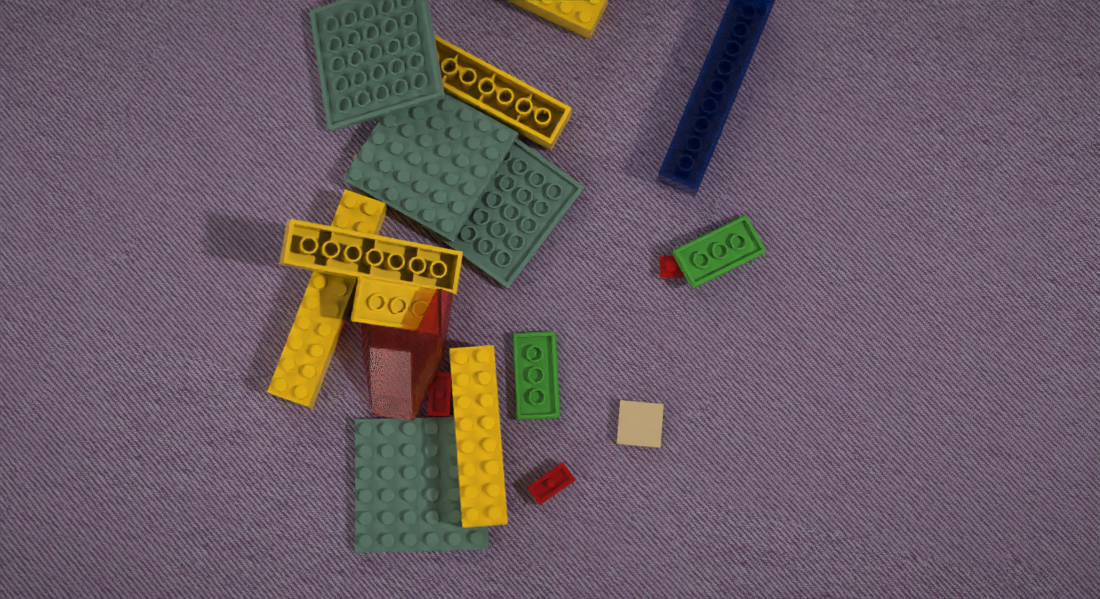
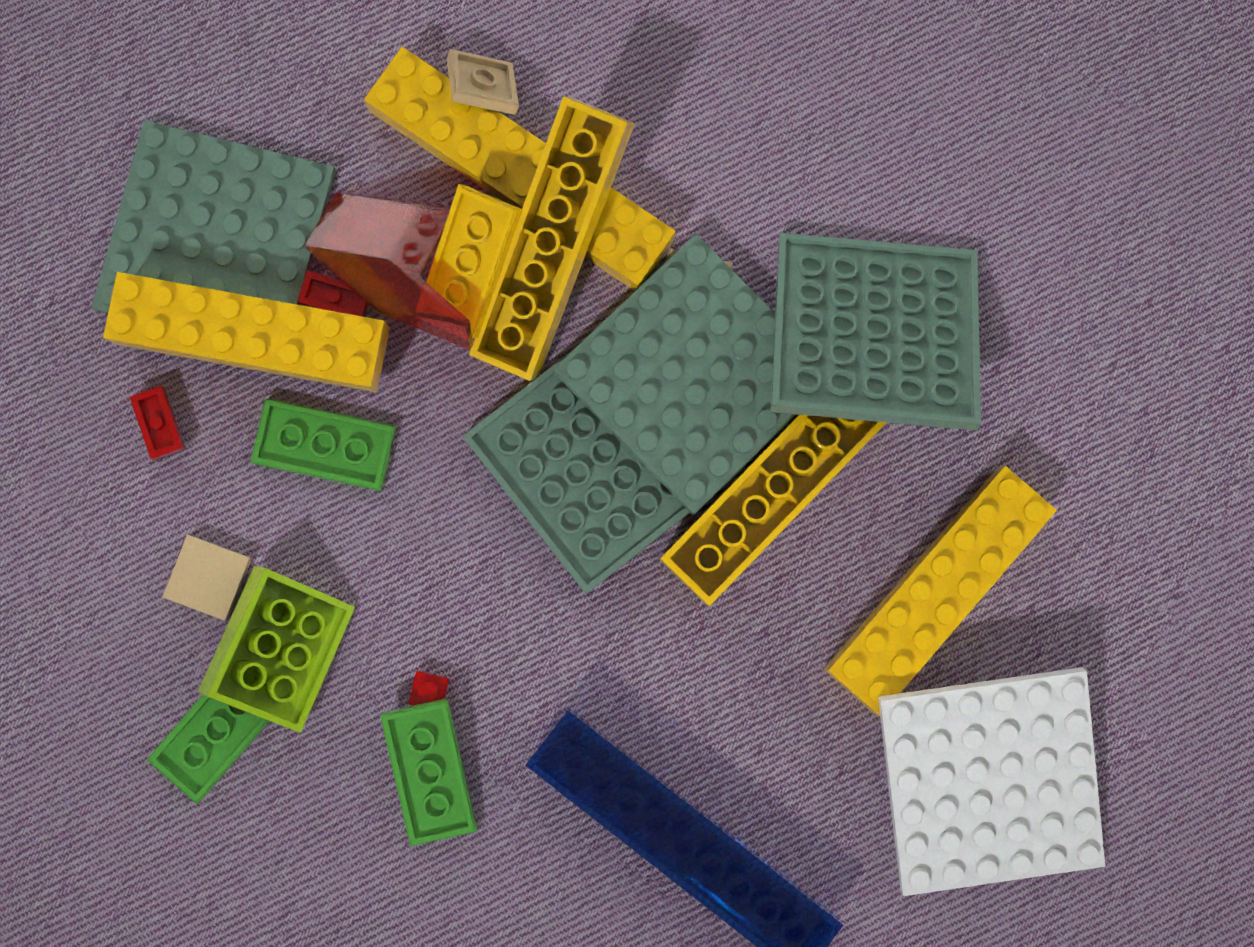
camera: 105 degrees right, 5 degrees up
(277, 335) = (482, 82): none -> tan tile
(671, 365) = (276, 649): none -> lime slope
(732, 390) = (205, 746): none -> bright green tile

